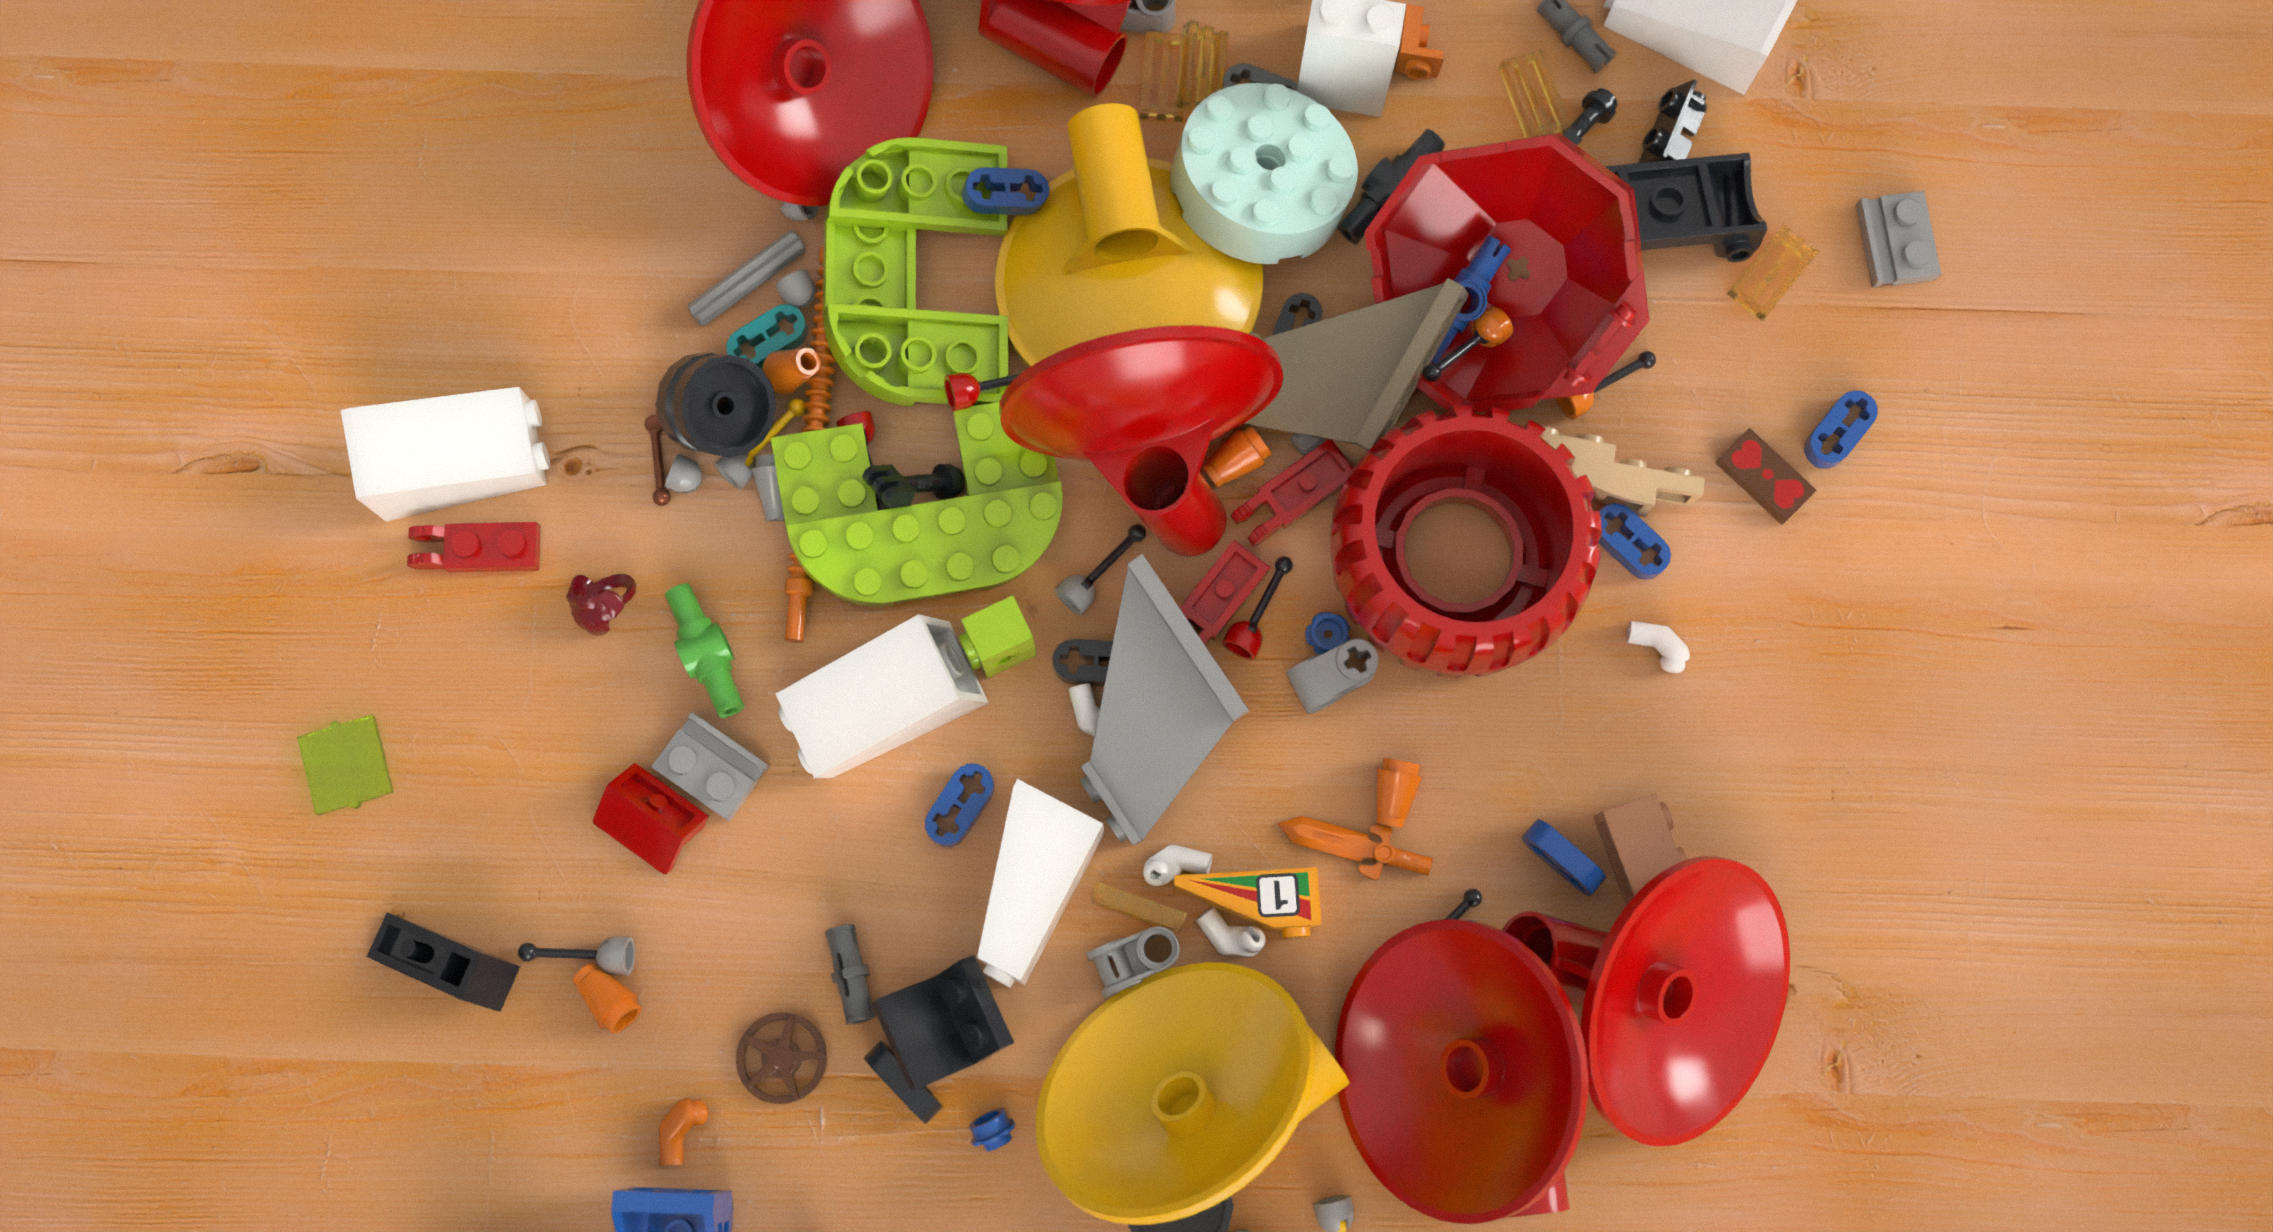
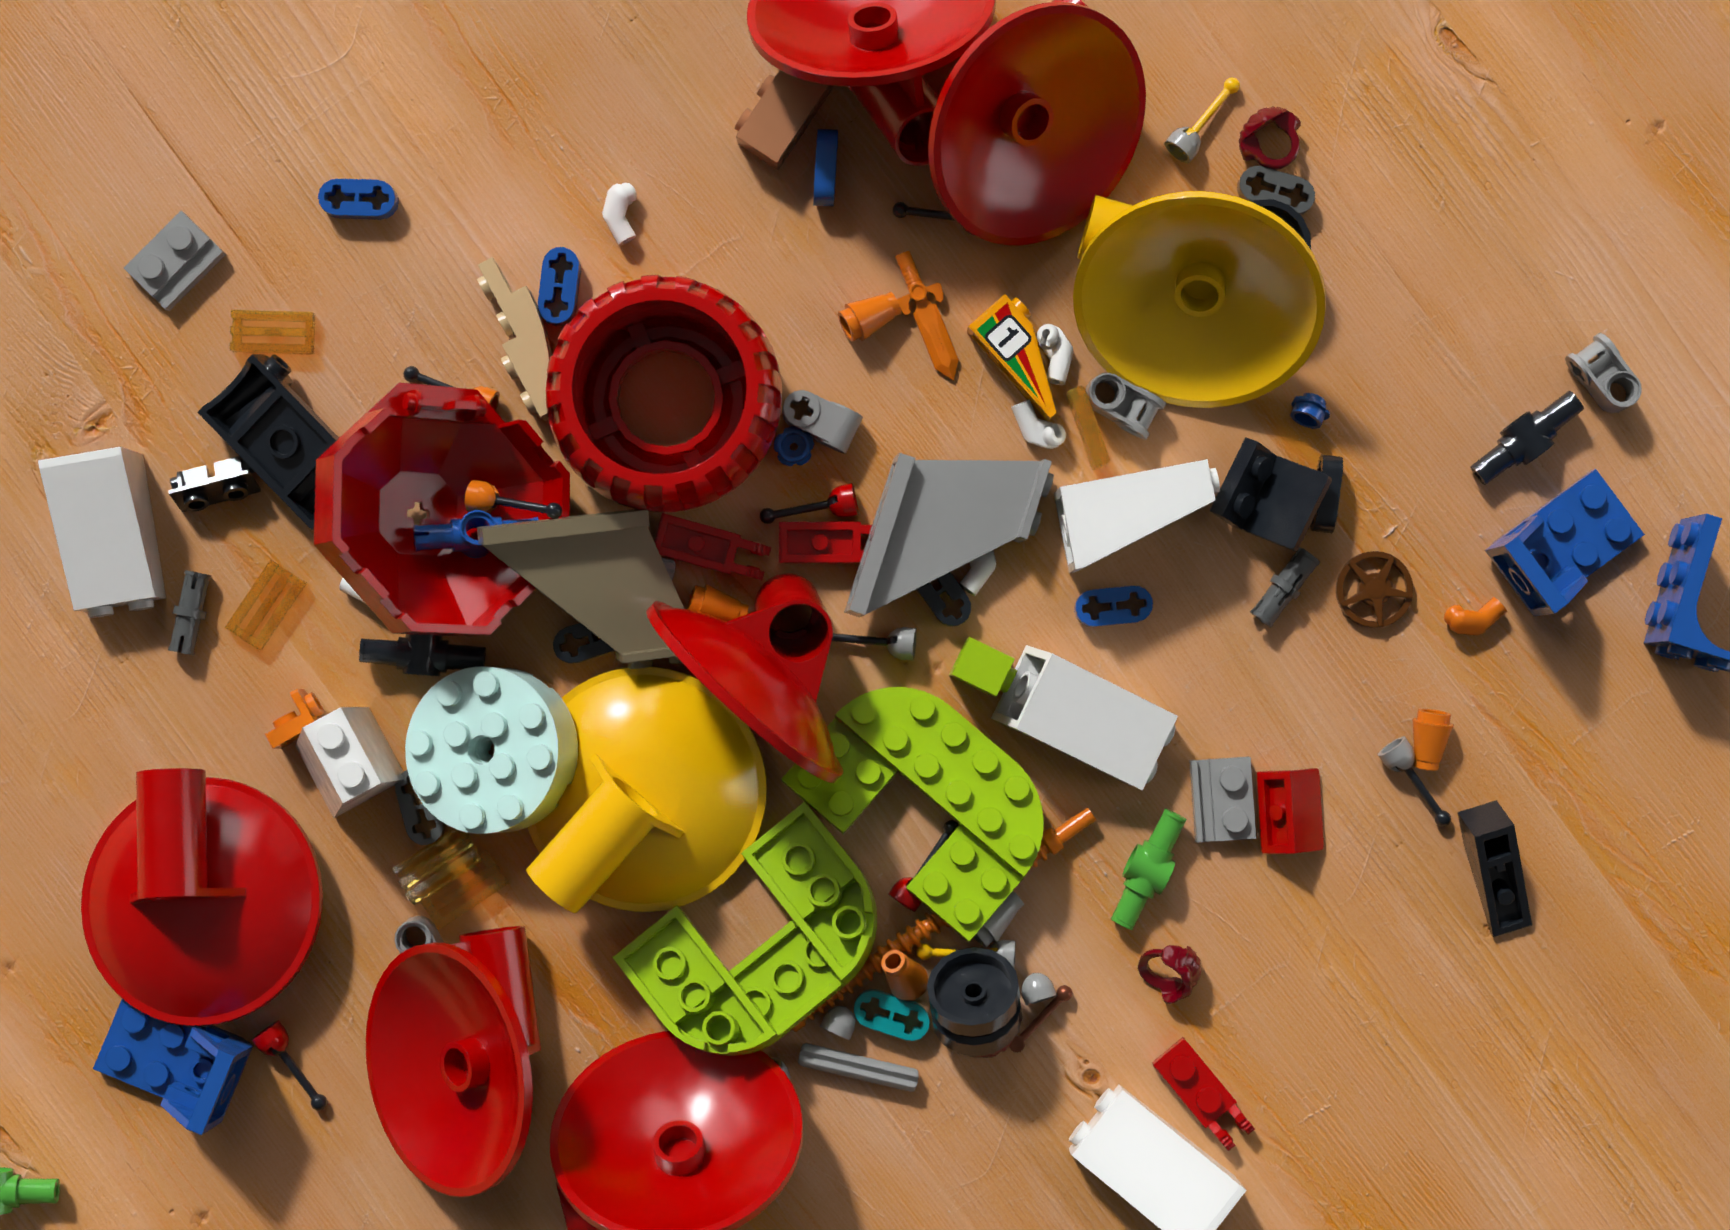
camera: 130 degrees left, 10 degrees up
(345, 765) = (1420, 1053): clear neon green piece -> none
(899, 490) = (934, 821): black hinge -> none
(964, 389) = (824, 834): red hinge -> none
(1002, 182) = (643, 934): blue beam -> none
(1598, 107) = (295, 552): black hinge -> none
(1766, 476) = (435, 227): reddish brown tile -> none

